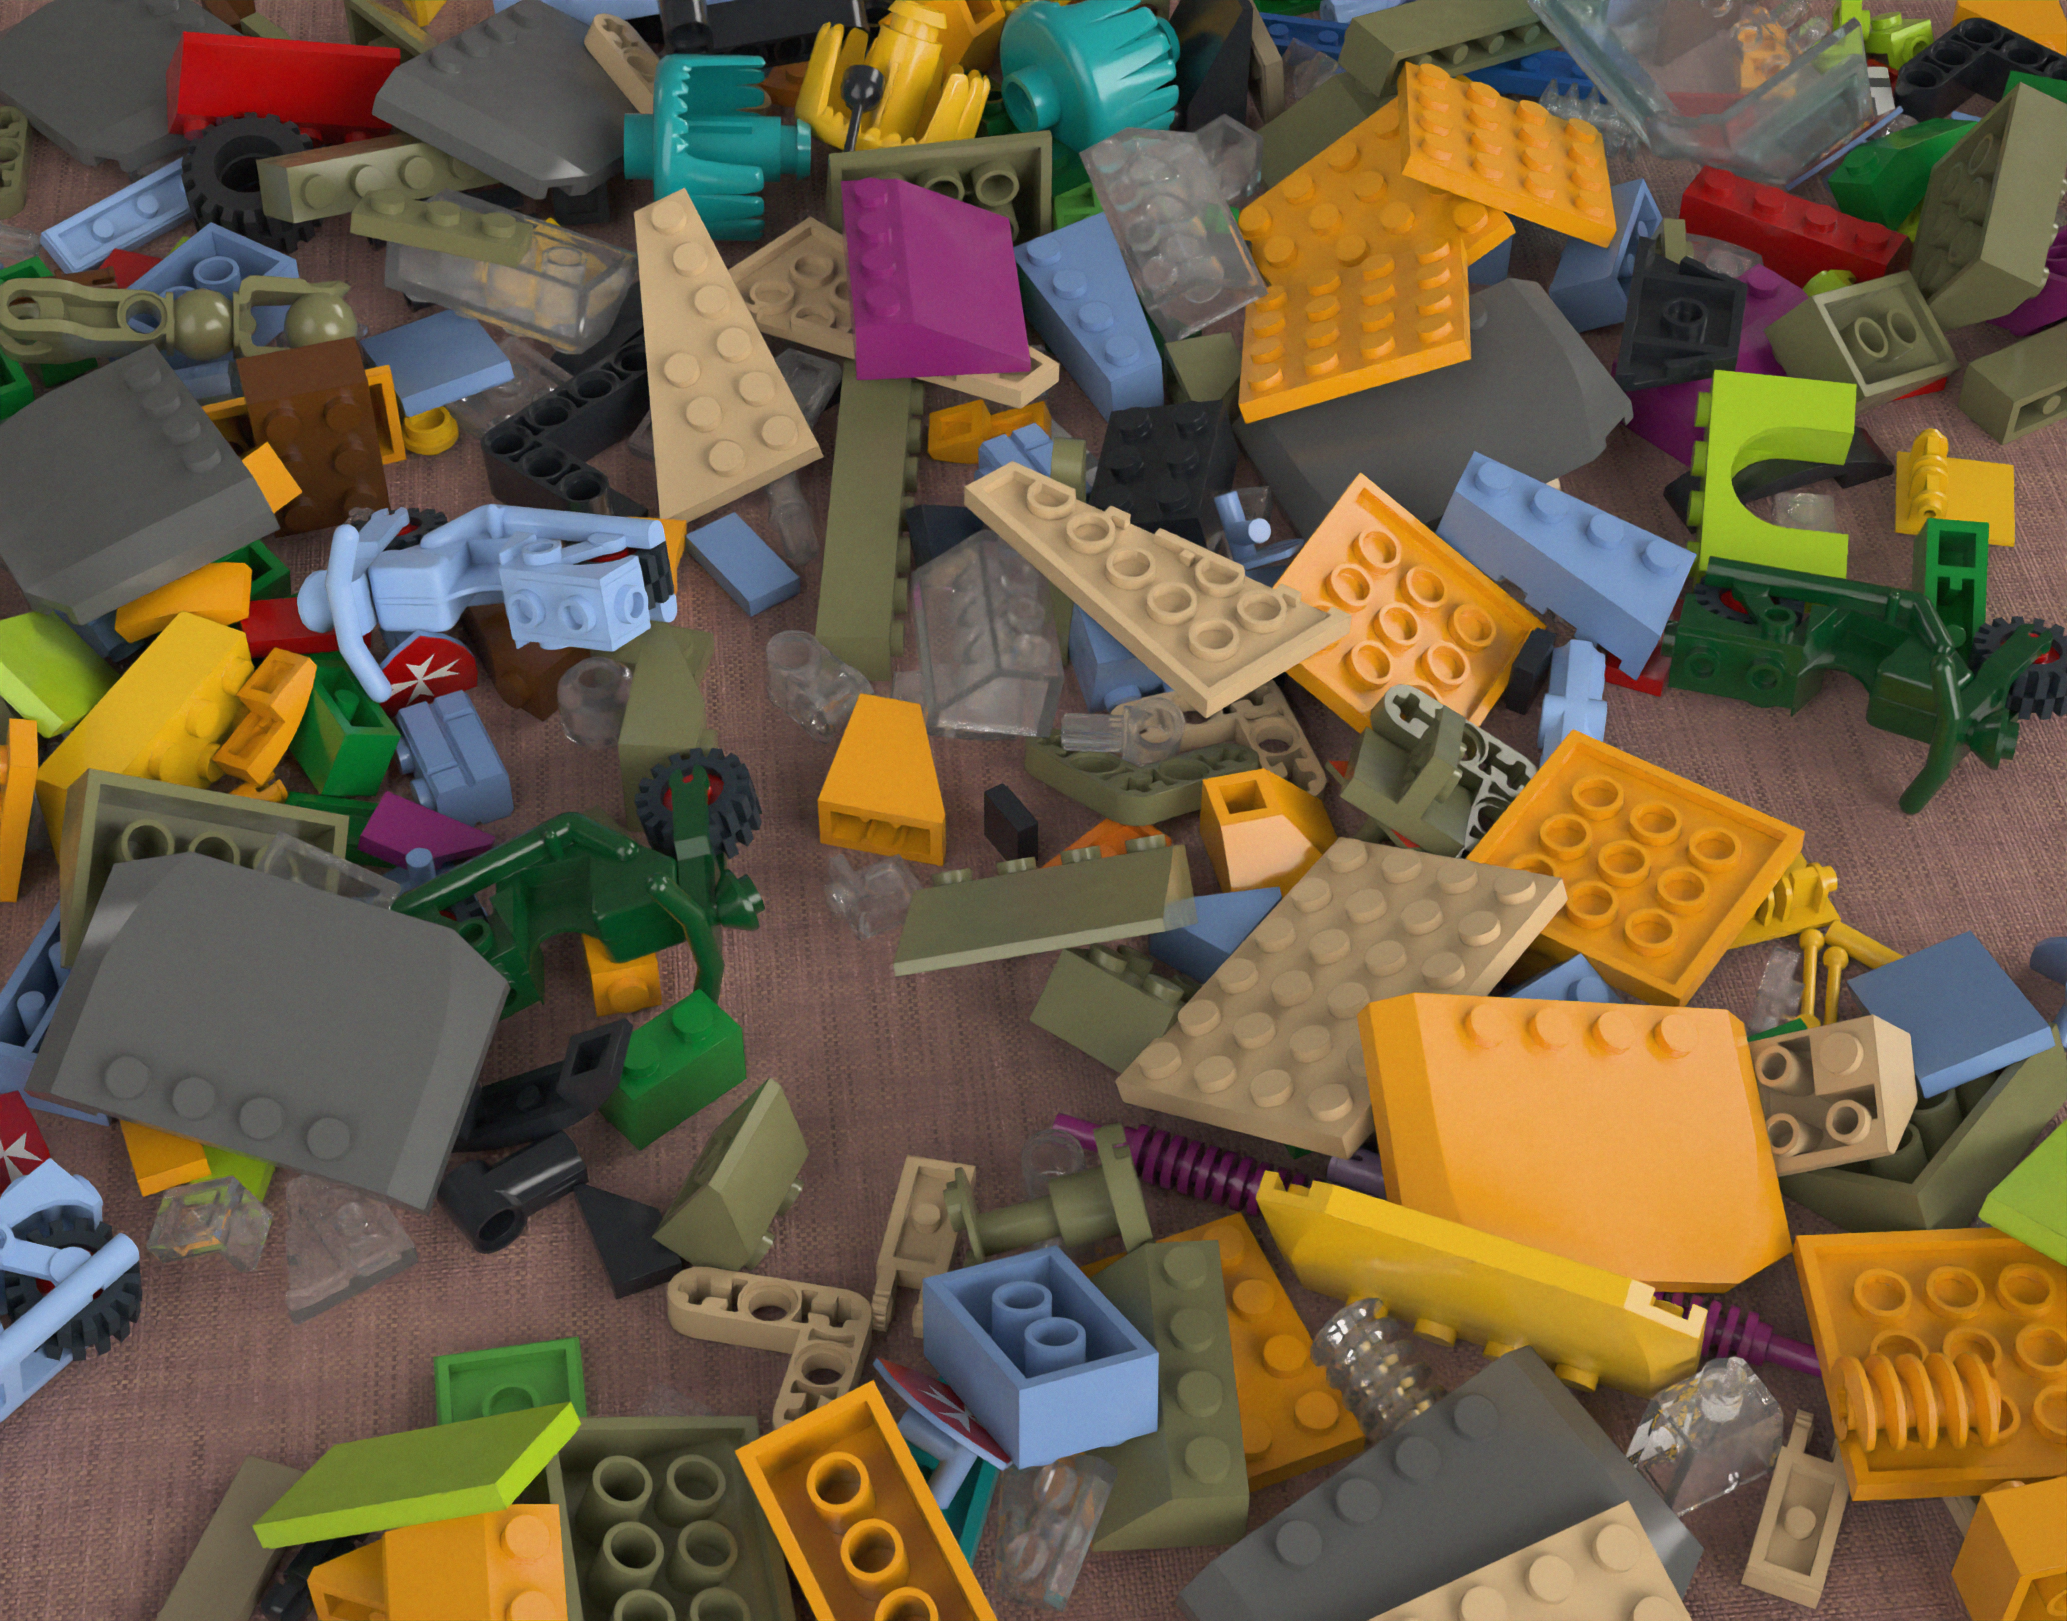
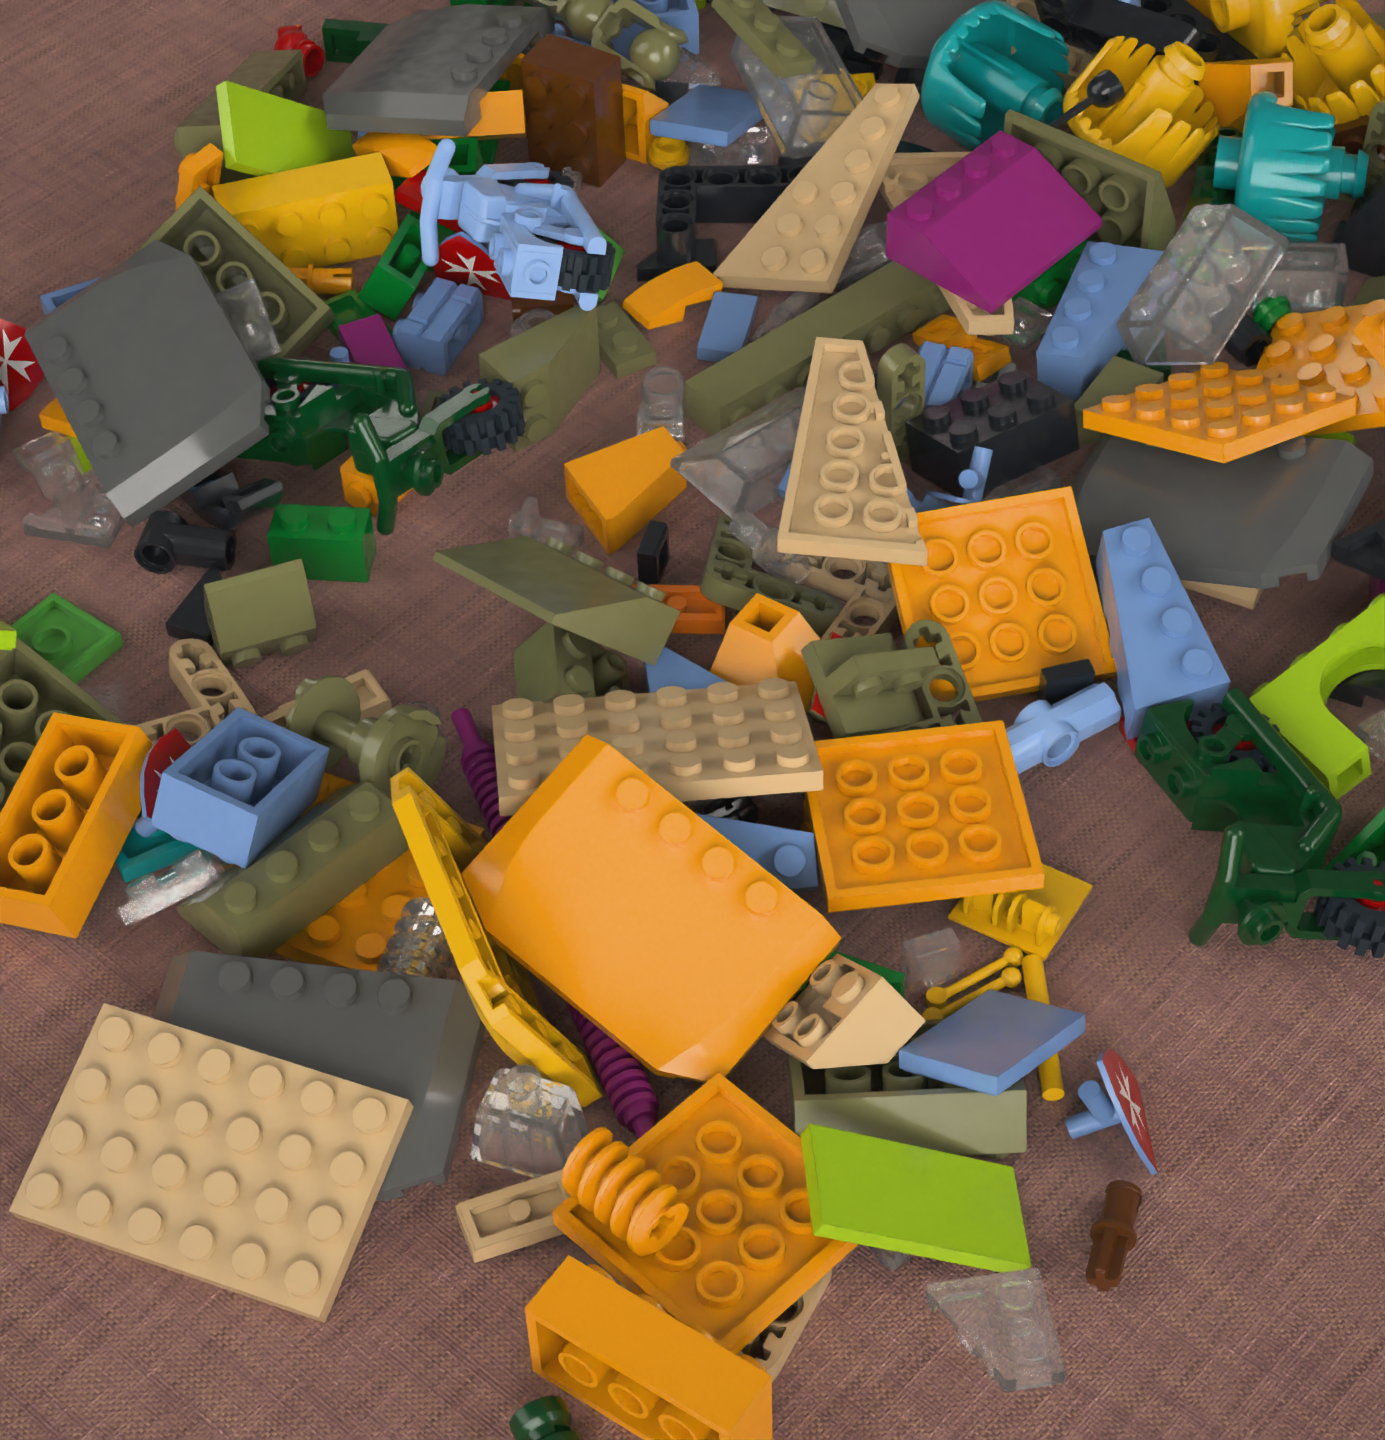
camera: 50 degrees right, 0 degrees up
(277, 702) = (377, 230): light orange slope -> none

